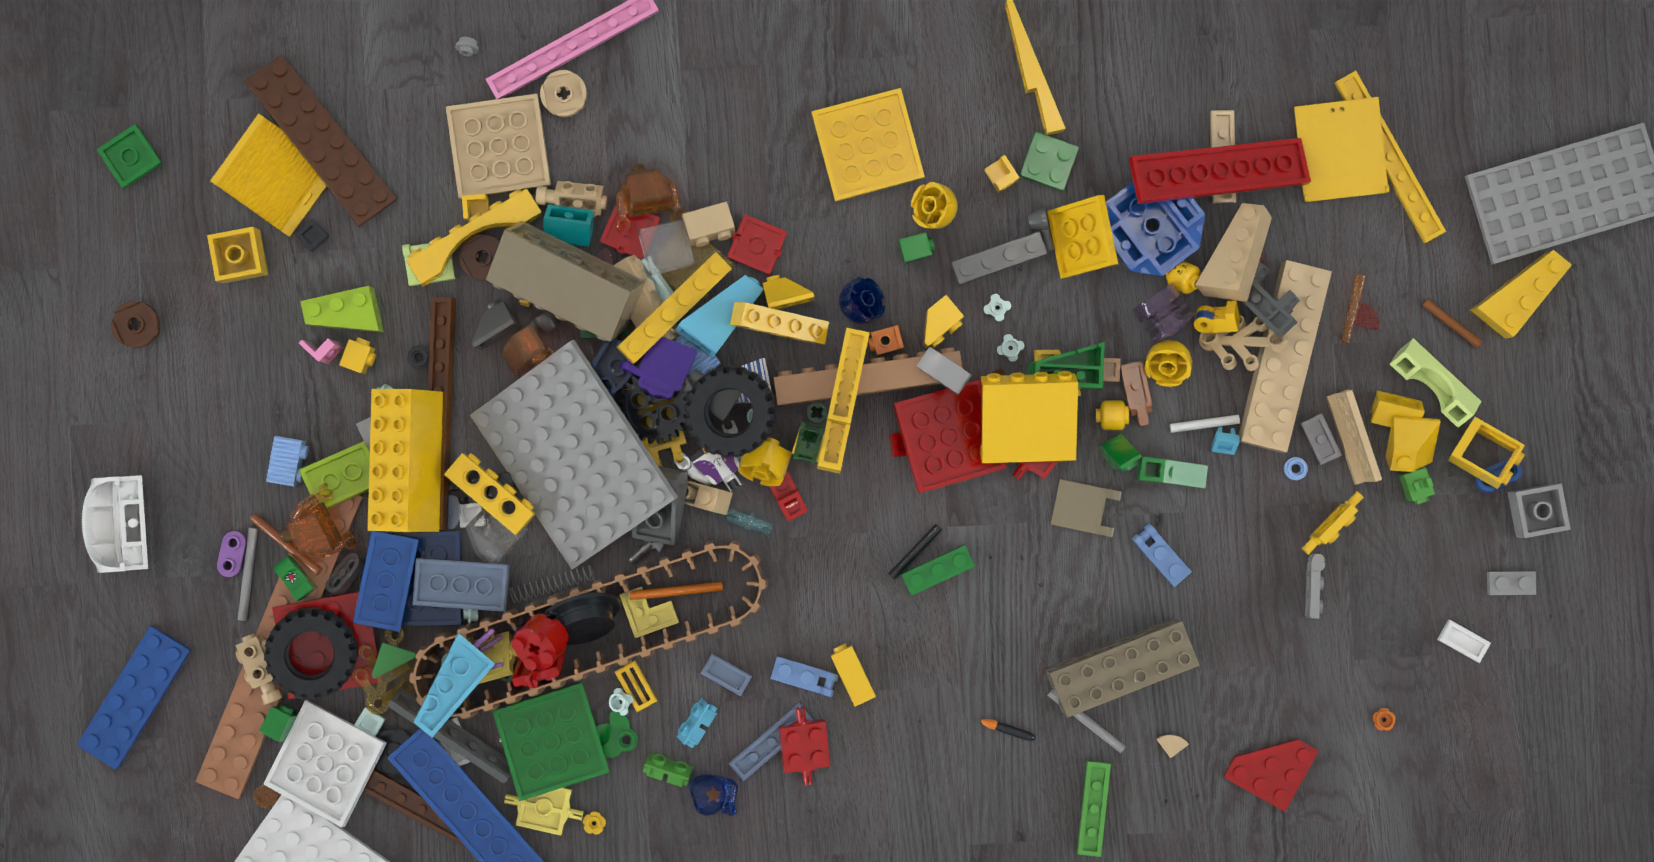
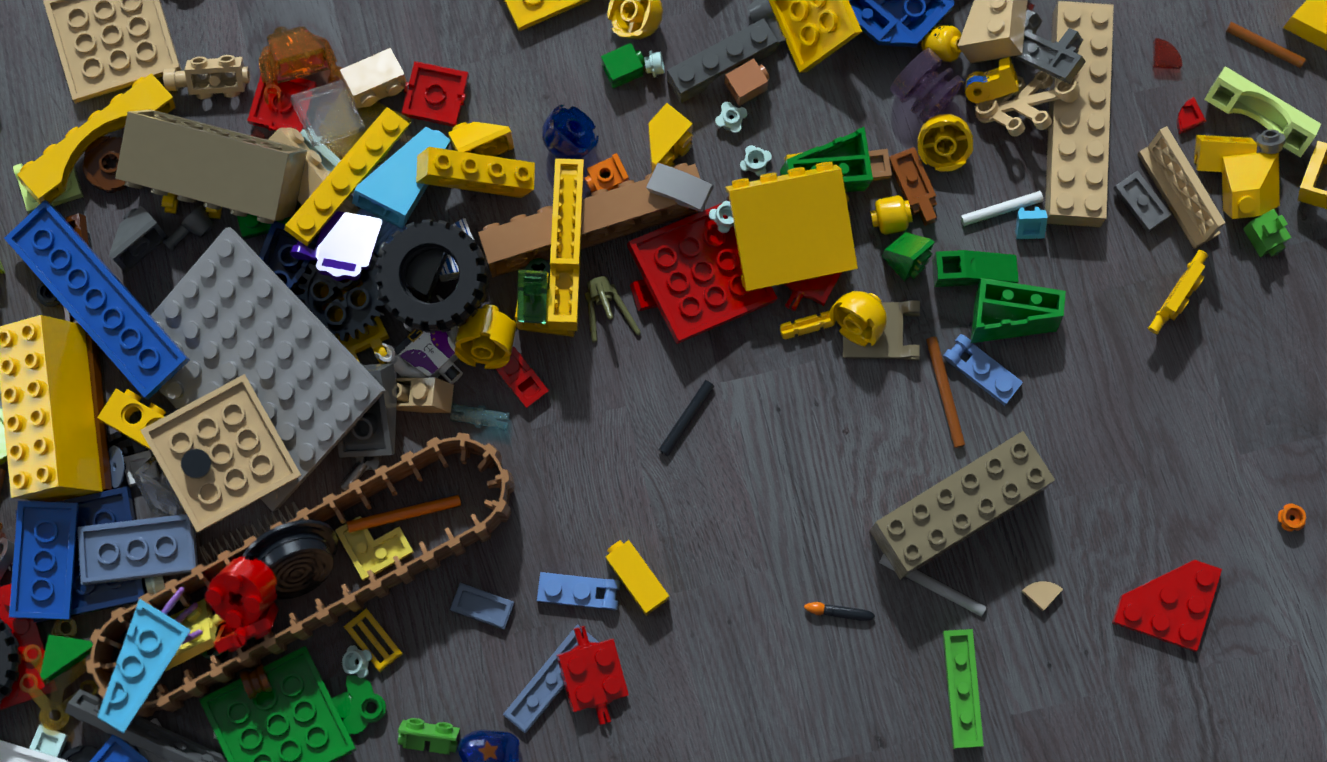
camera: 10 degrees left, 10 degrees down
(456, 374) = (97, 299): none -> blue plate
(474, 204) = (91, 101): yellow panel -> none
(518, 530) = (196, 463): none -> black tile
(526, 349) = (174, 254): clear orange wedge -> none
(538, 522) = (242, 447): none -> tan plate
(539, 707) = (256, 681): none -> reddish brown wheel
(569, 224) = (209, 105): teal brick -> none
(690, 731) = (449, 680): medium azure hinge -> none
(864, 437) = (600, 293): none -> olive plant
(937, 570) = (717, 430): green arch -> none
(942, 251) = (654, 63): none -> light aqua plate
(970, 392) = (717, 215): none -> light aqua plate
(1016, 281) = (747, 81): none -> nougat brick
(1027, 493) = (805, 325): none -> yellow axle
(1071, 497) = (860, 317): none -> yellow cylinder
(1127, 568) = (945, 392): none -> dark orange bar
(1196, 514) = (1015, 310): none -> green wedge
(1303, 468) = (1123, 233): light blue plate -> none
(1314, 584) = (1172, 372): light grey hinge -> none
(1353, 308) = (1147, 48): clear orange bar -> none
(1375, 373) = (1189, 116): none -> red tile
(1436, 411) = (1271, 141): none -> flat silver plate

